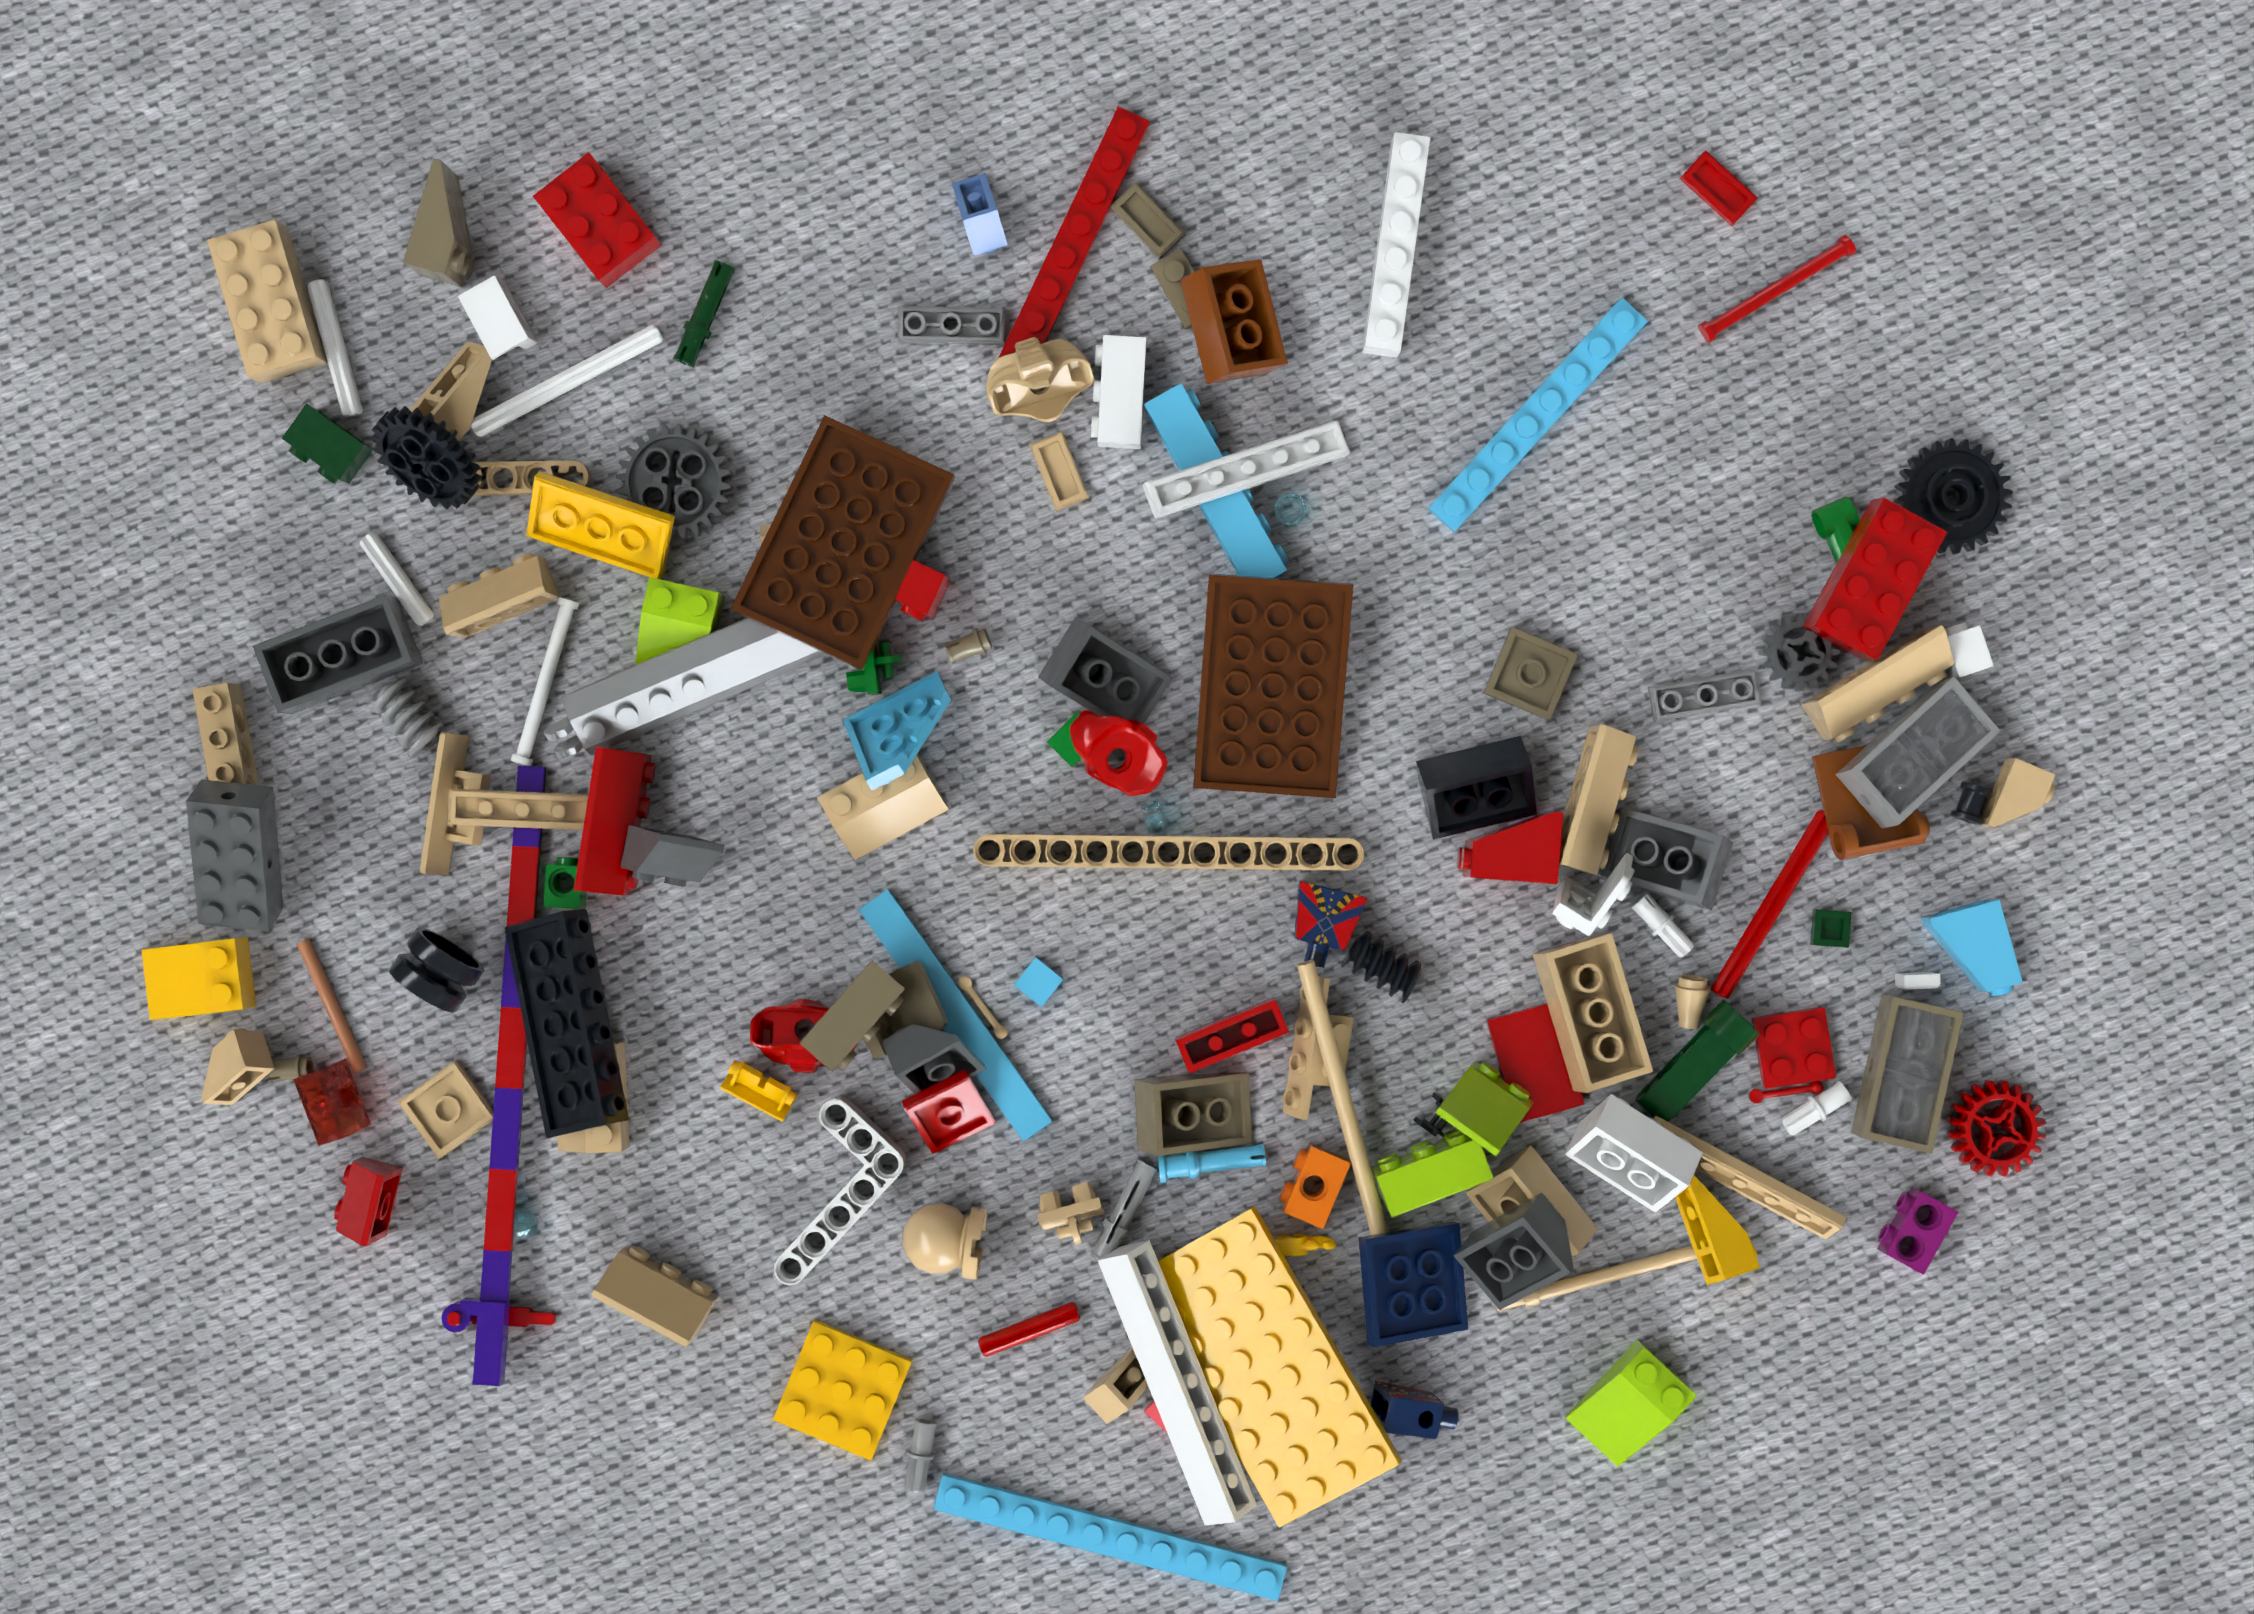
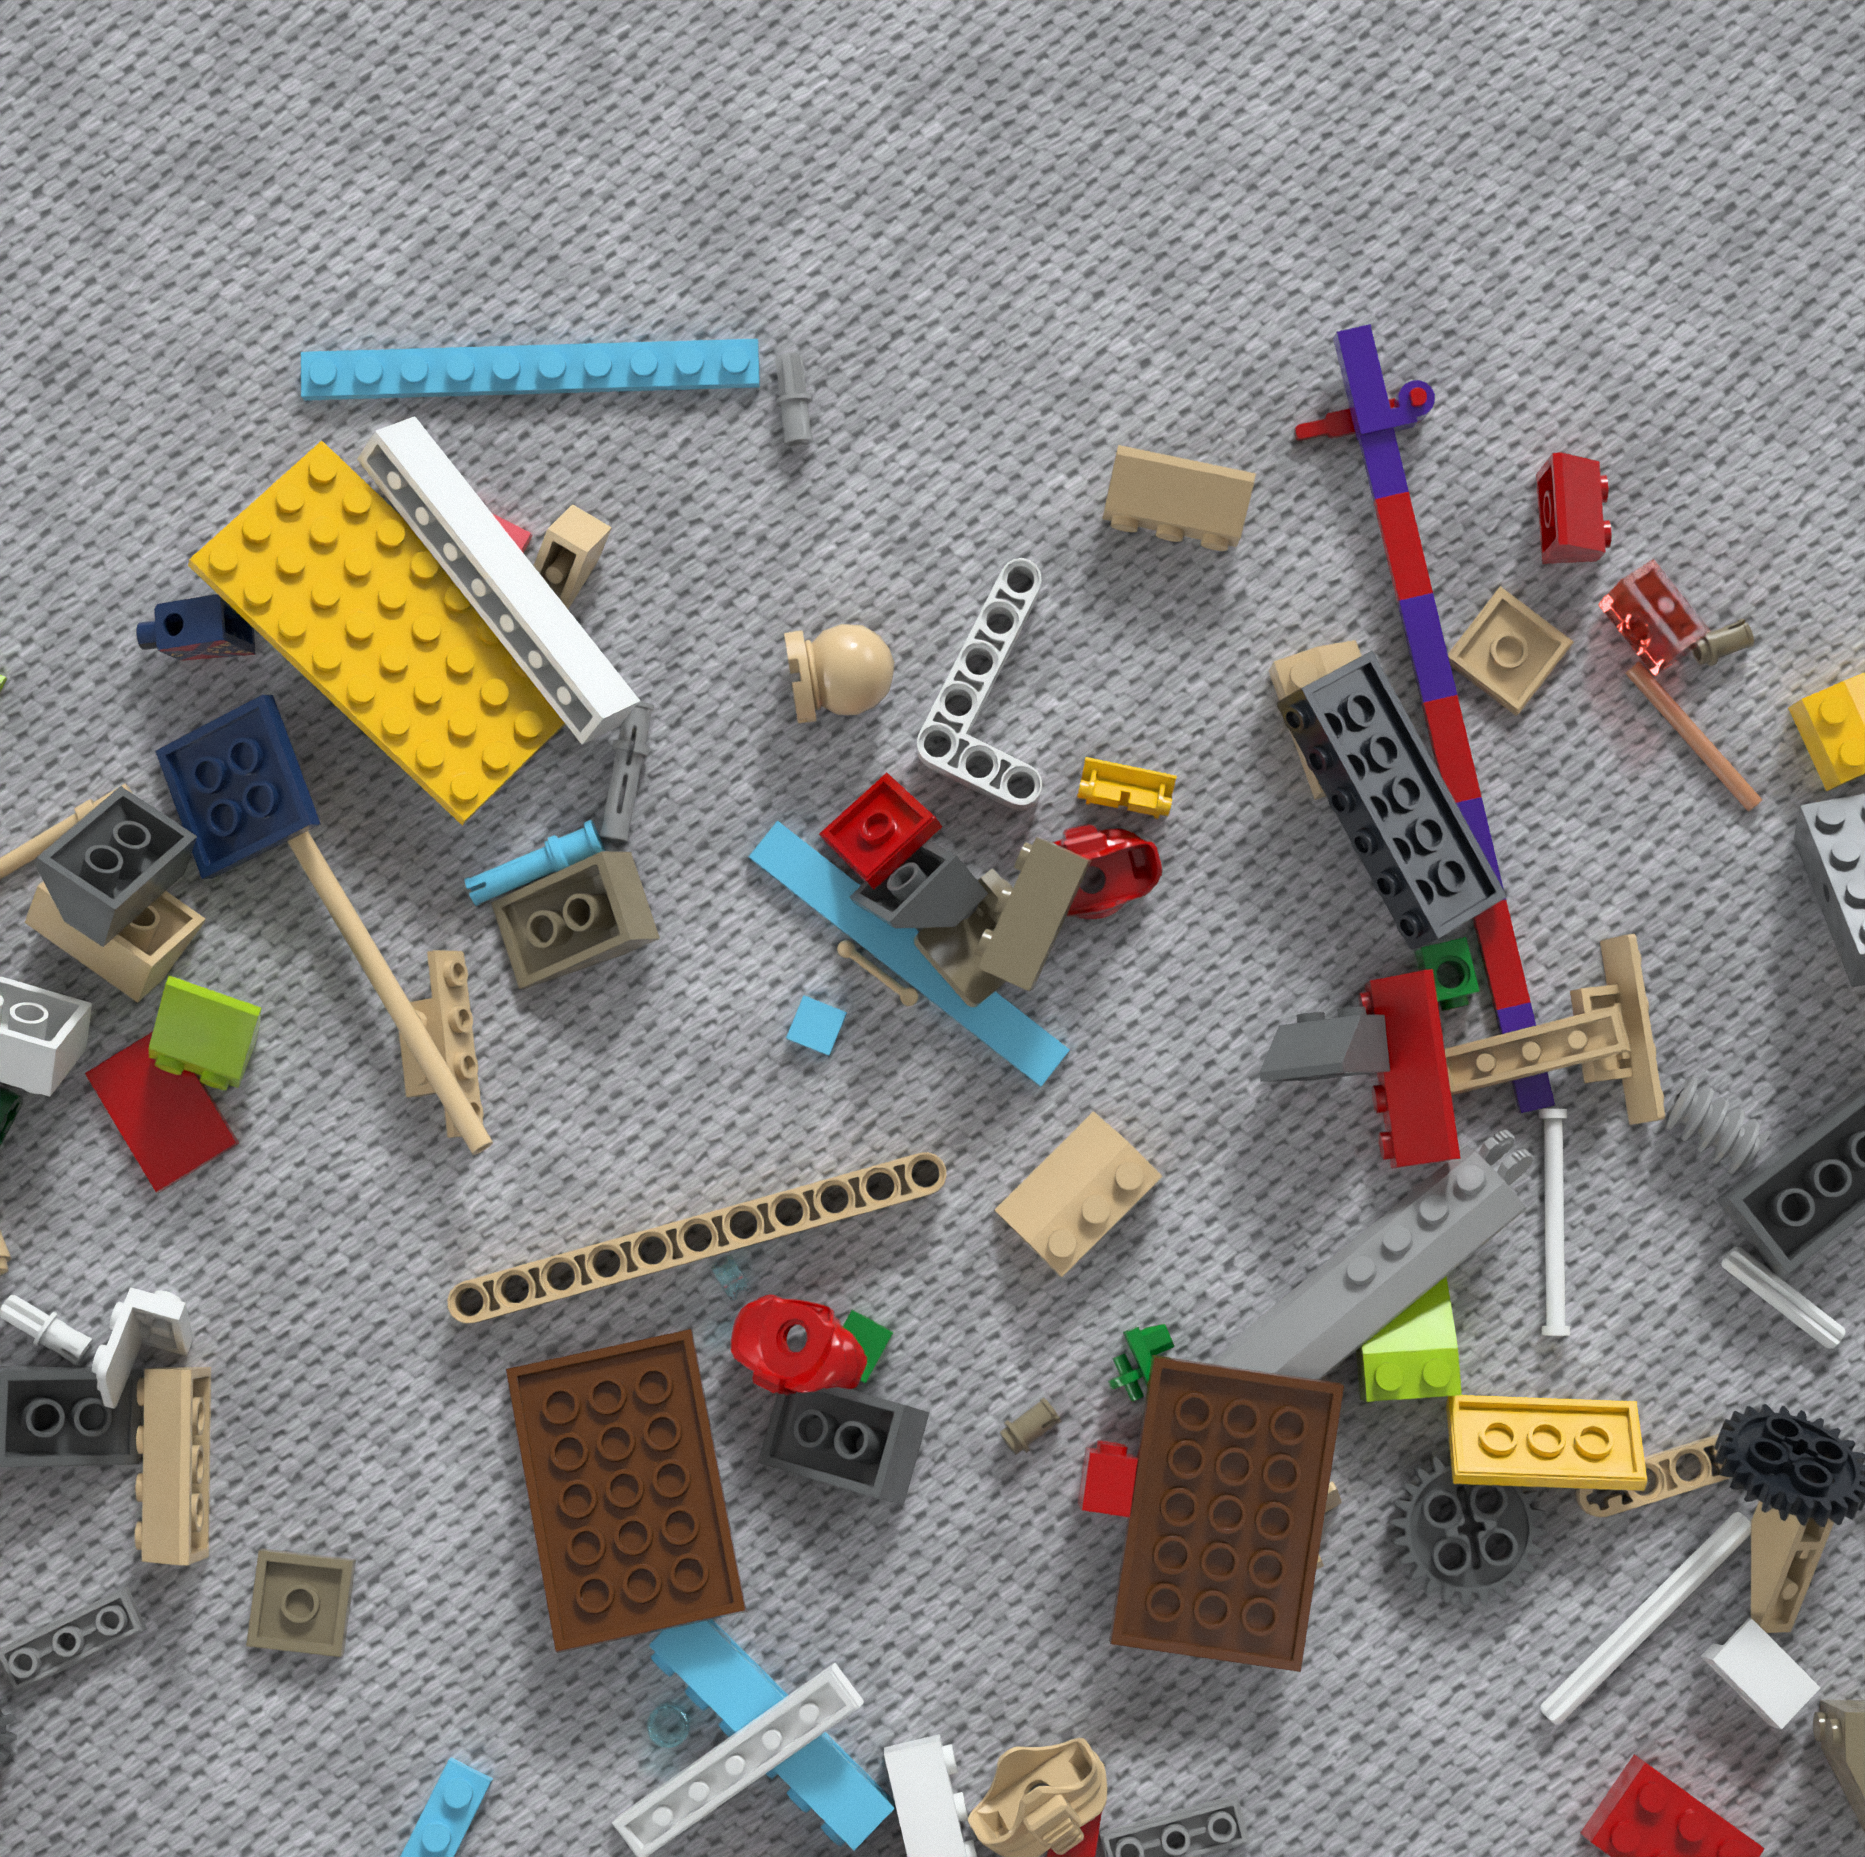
camera: 165 degrees right, 5 degrees down
(236, 1066) = (1787, 626): tan slope -> none
(436, 970) = (1575, 818): black wheel -> none
(497, 596) = (1647, 1313): tan slope -> none
(525, 1225) = (1367, 536): clear light blue hinge -> none
(704, 313) = (1497, 1758): dark green pin -> none
(842, 1389) = (913, 451): yellow plate -> none
(895, 728) = (1088, 1293): medium azure plate -> none
(1029, 1329) = (703, 591): red axle -> none
(1054, 1215) = (675, 762): tan hips -> none
(1059, 471) = (980, 1687): tan tile -> none
(1231, 1035) = (552, 1030): red brick -> none
(1302, 1243) = (392, 796): yellow piece -> none
(1316, 1206) = (384, 848): orange brick -> none
(1325, 919) = (475, 1210): torso -> none
(1383, 965) = (385, 1174): black piece -> none
(1429, 1126) = (271, 988): black piece -> none
(1430, 1172) = (252, 932): lime brick -> none
(1477, 787) = (328, 1436): black slope -> none
(1516, 852) = (253, 1368): red slope -> none
(1592, 1012) = (103, 1192): tan brick -> none

